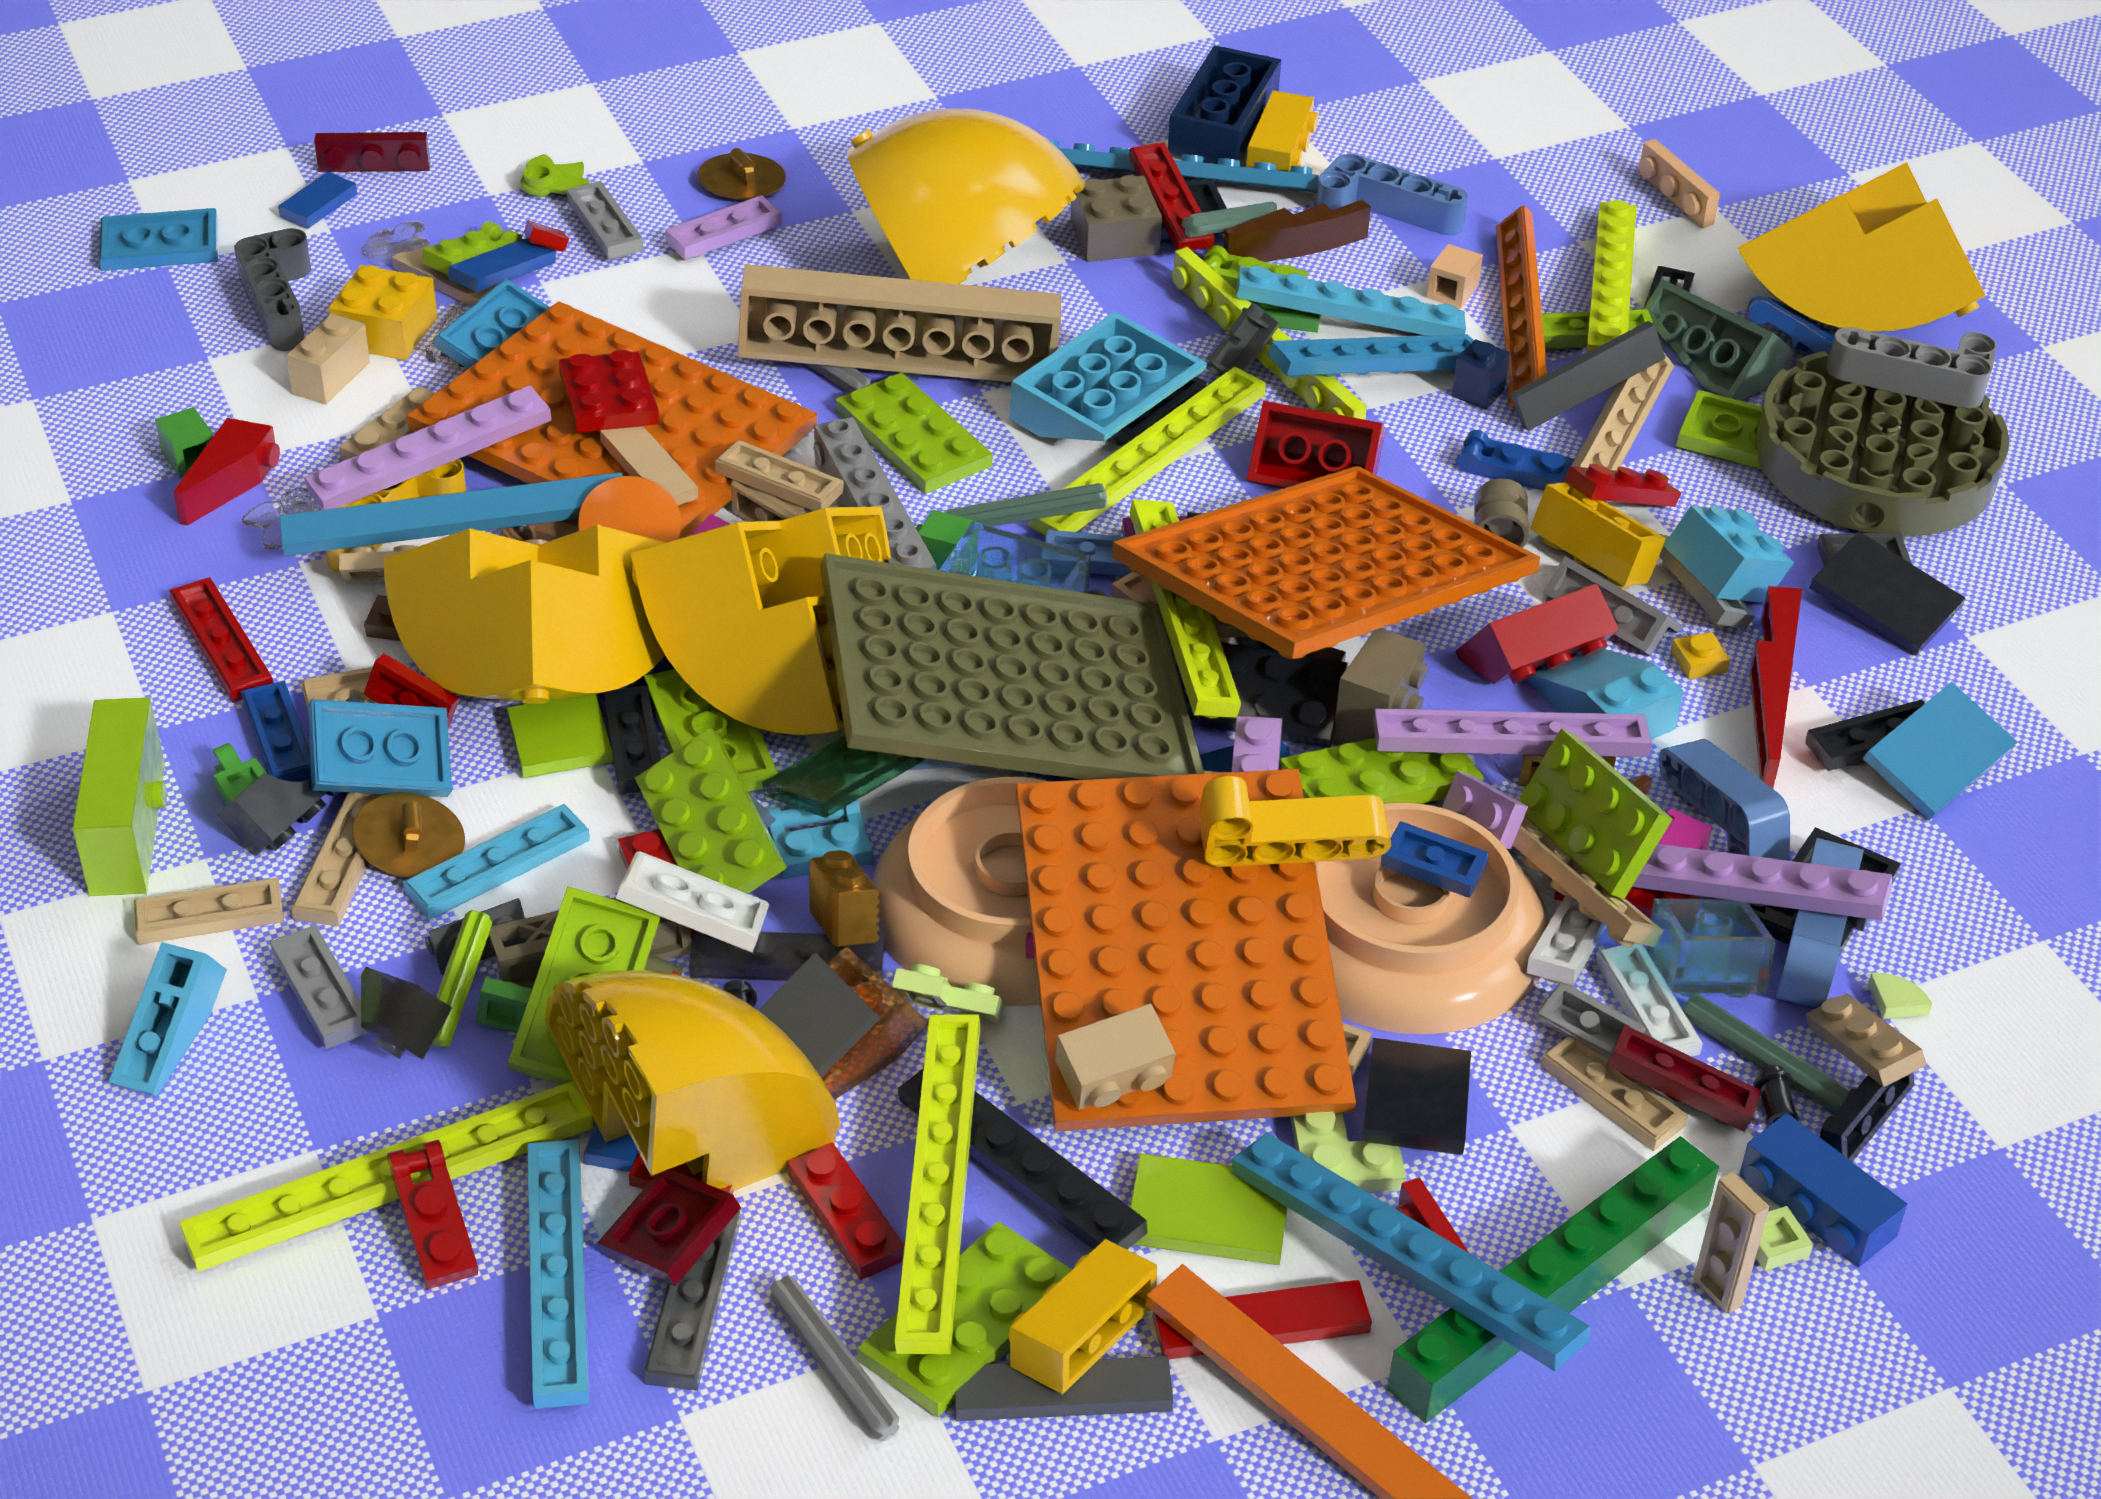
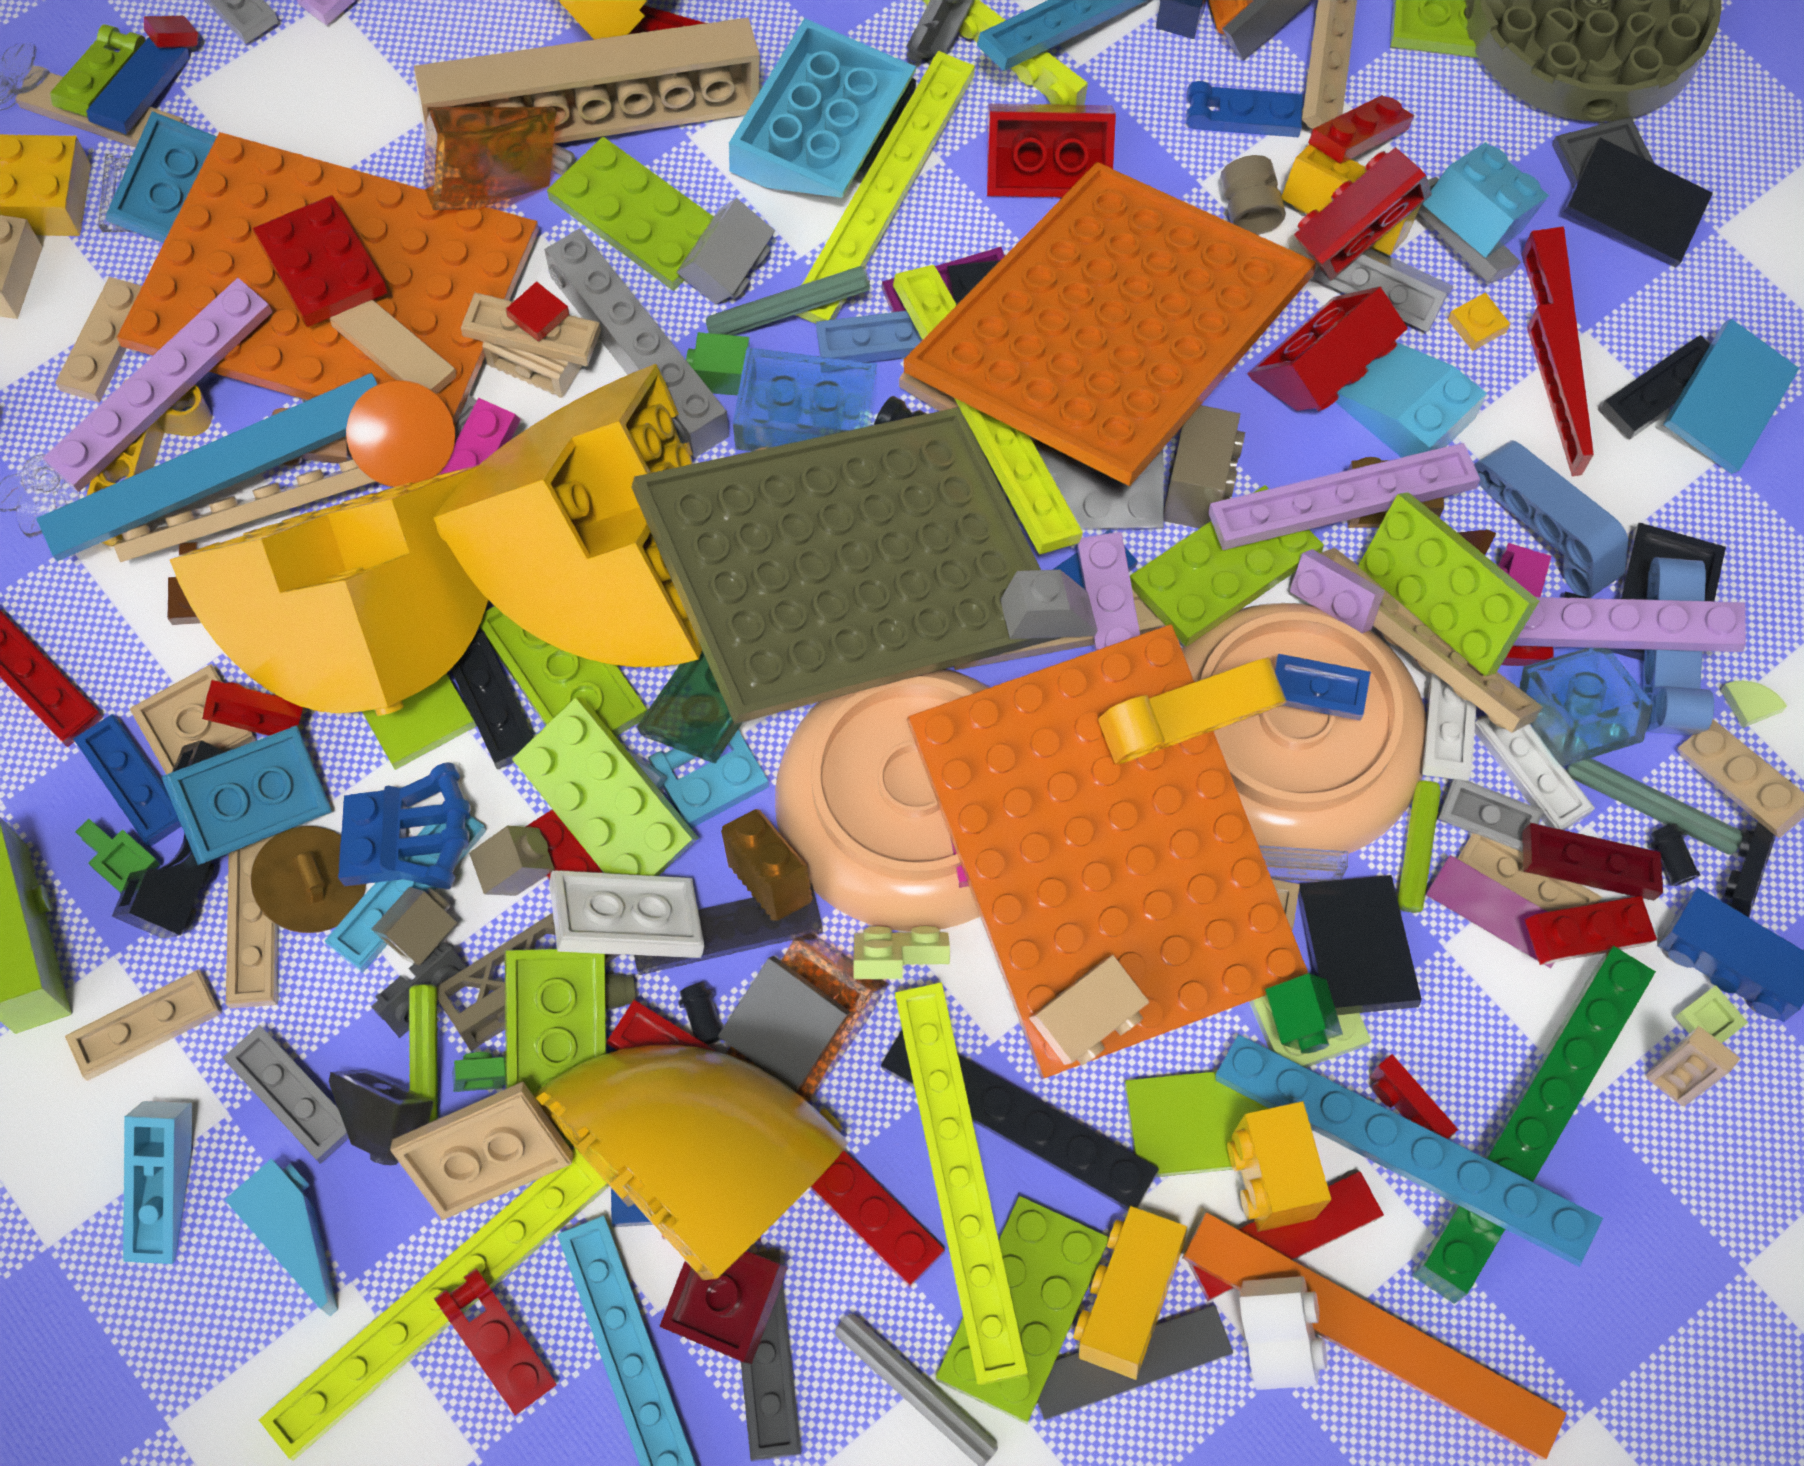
camera: 15 degrees left, 25 degrees up
(272, 1079) = (287, 1226): none -> medium azure slope
(481, 1048) = (482, 1151): none -> tan tile
(493, 879) = (415, 924): none -> dark tan brick
(512, 813) = (376, 825): none -> blue plate
(602, 850) = (511, 860): none -> dark tan brick
(789, 458) = (537, 311): none -> red tile
(790, 349) = (486, 154): none -> clear orange slope
(983, 464) = (726, 252): none -> light grey brick
(1184, 743) = (1047, 606): none -> light grey slope
(1225, 1376) = (1281, 1333): none -> white brick
(1265, 1231) = (1278, 1167): none -> yellow brick
(1337, 1117) = (1304, 1013): none -> green brick
(1382, 1016) = (1304, 863): none -> clear tile
(1507, 1037) = (1419, 846): none -> lime axle
(1576, 1103) = (1485, 903): none -> magenta tile
(1598, 528) = (1363, 211): none -> red slope
(1656, 1123) = (1590, 930): none -> red plate

